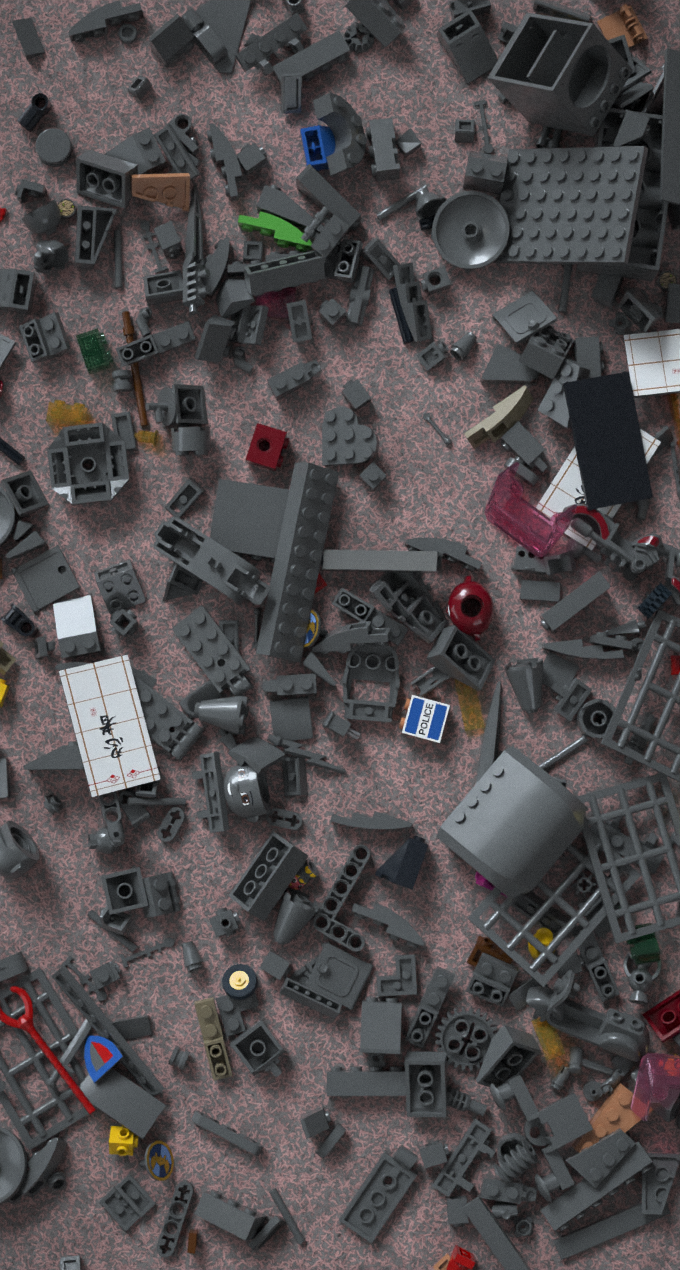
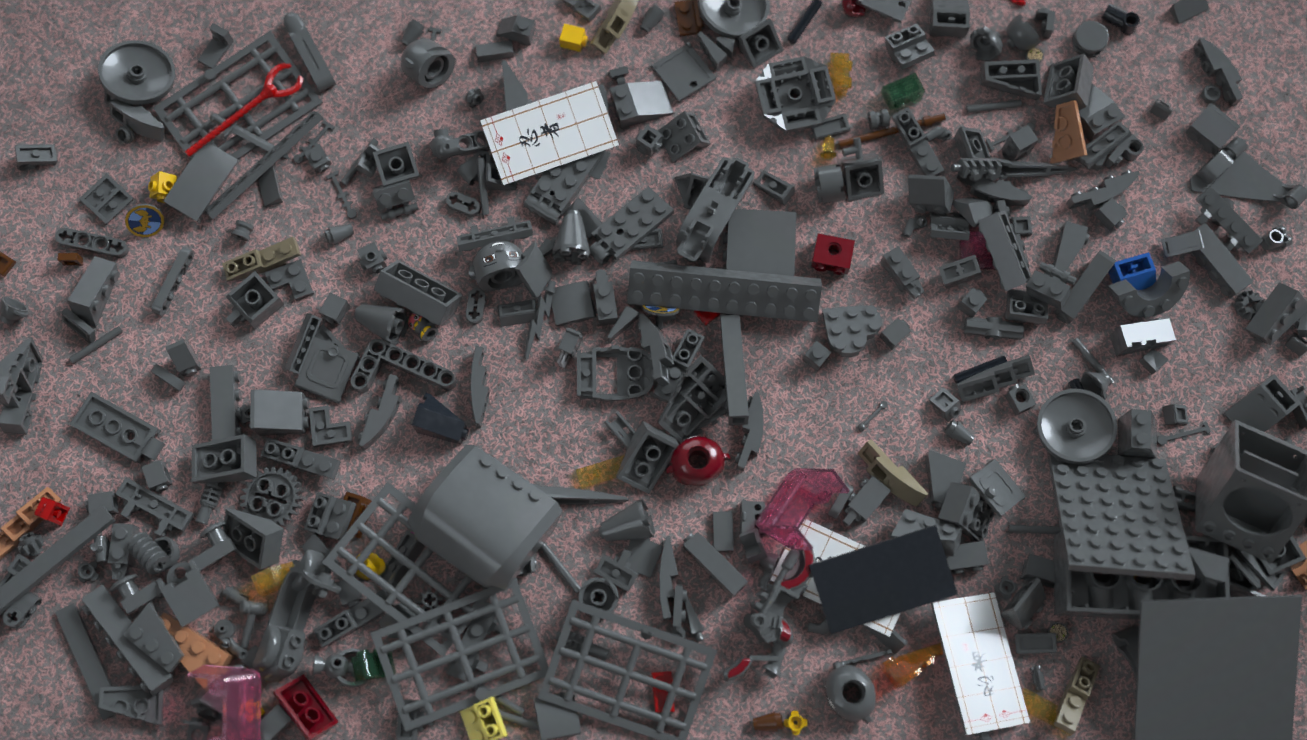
camera: 85 degrees right, 10 degrees down
(17, 620) = (642, 50): black piece -> none
(100, 1056) = (240, 159): shield -> none
(239, 981) = (316, 278): black wheel -> none
(284, 232) = (1048, 240): bright green slope -> none
(380, 257) = (1034, 343): dark grey plate -> none
(424, 718) = (583, 428): piece -> none
(654, 600) = (725, 645): black wheel -> none

